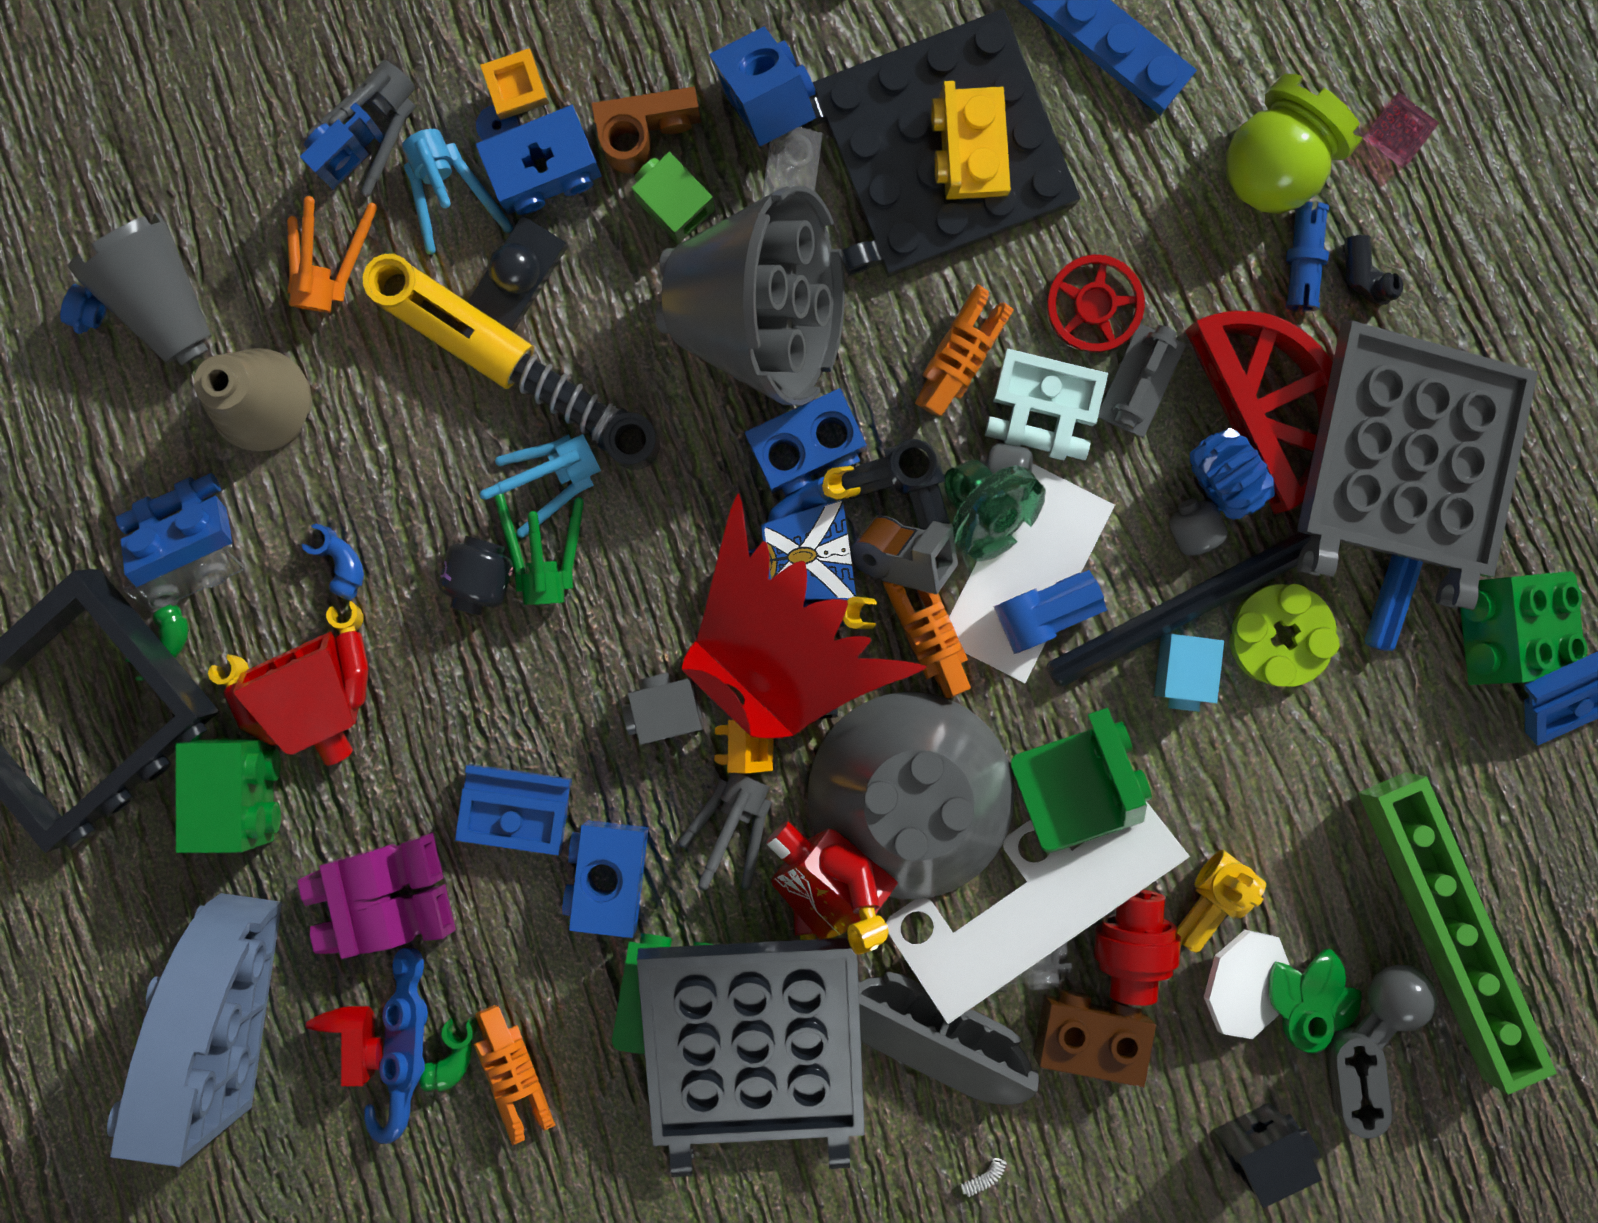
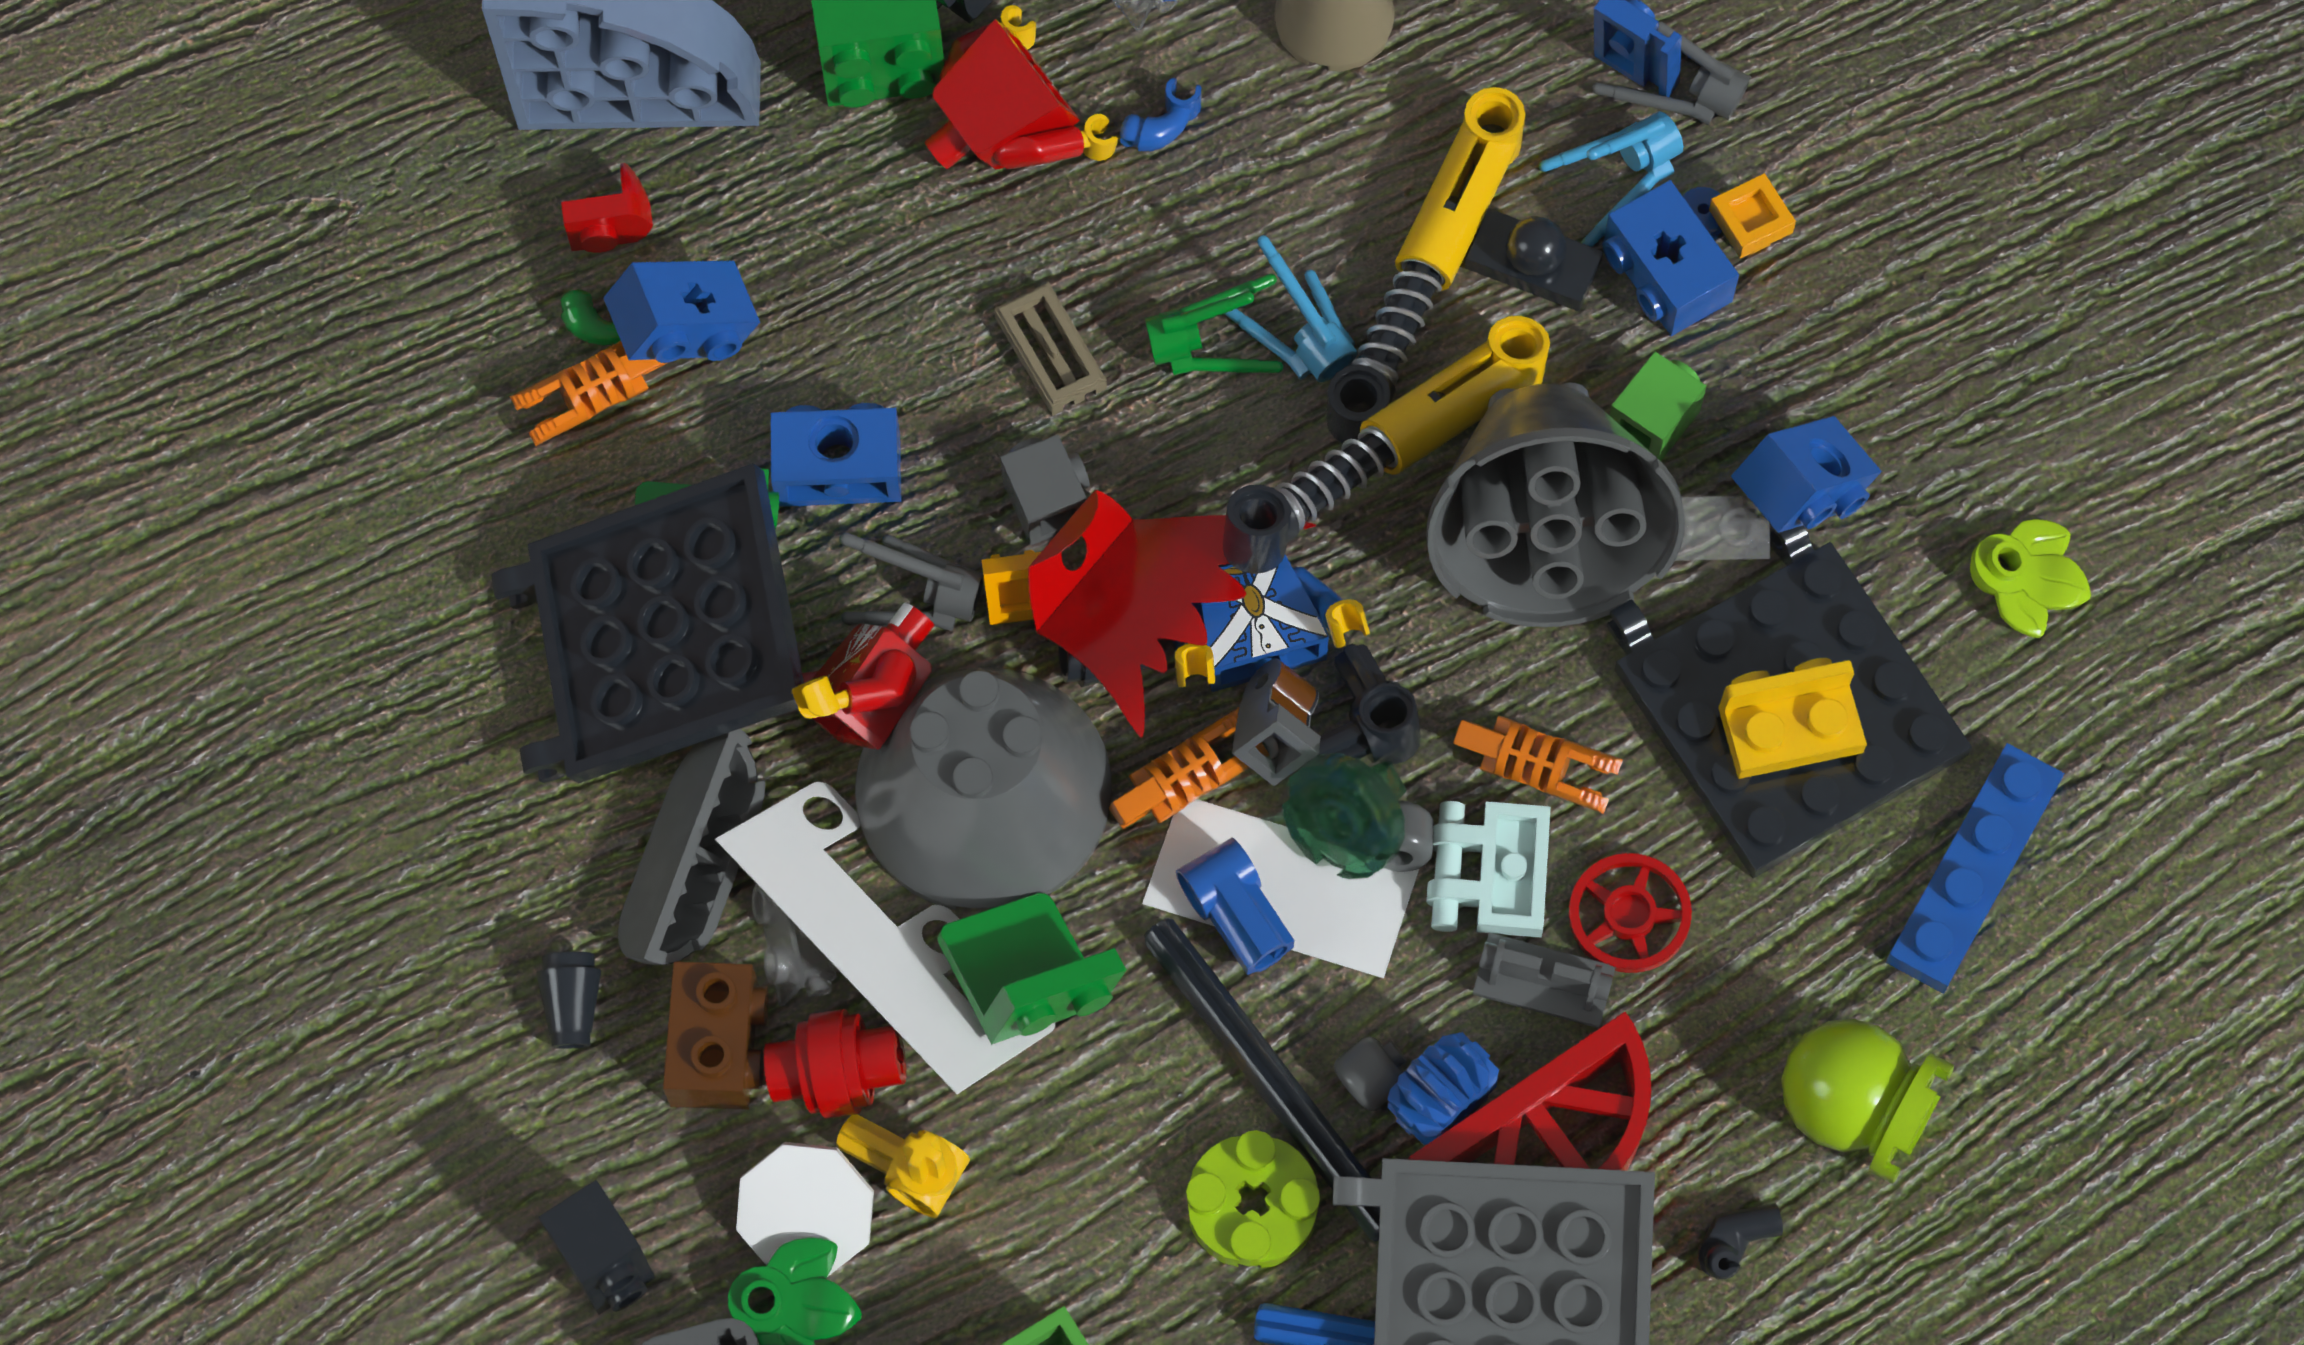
camera: 85 degrees right, 20 degrees down
(310, 284) = (1475, 45): orange plant -> none
(361, 900) = (777, 196): magenta hips -> none
(403, 1047) = (588, 266): blue piece -> none
(462, 994) = (681, 310): none -> blue brick
(475, 575) = (1170, 263): black head -> none
(513, 809) = (902, 345): blue plate -> none
(574, 671) = (1072, 389): none -> dark tan tile
(666, 110) = (1744, 361): dark orange plate -> none
(678, 417) = (1267, 518): none -> piece
(799, 430) = (1405, 591): blue brick -> none
(982, 1182) = (533, 952): white leg -> none
(1041, 1148) = (569, 997): none -> black cone
(1188, 670) = (1188, 1082): medium azure brick -> none
(1307, 257) = (1740, 1158): blue pin -> none
(1400, 130) = (1930, 1255): clear pink tile -> none

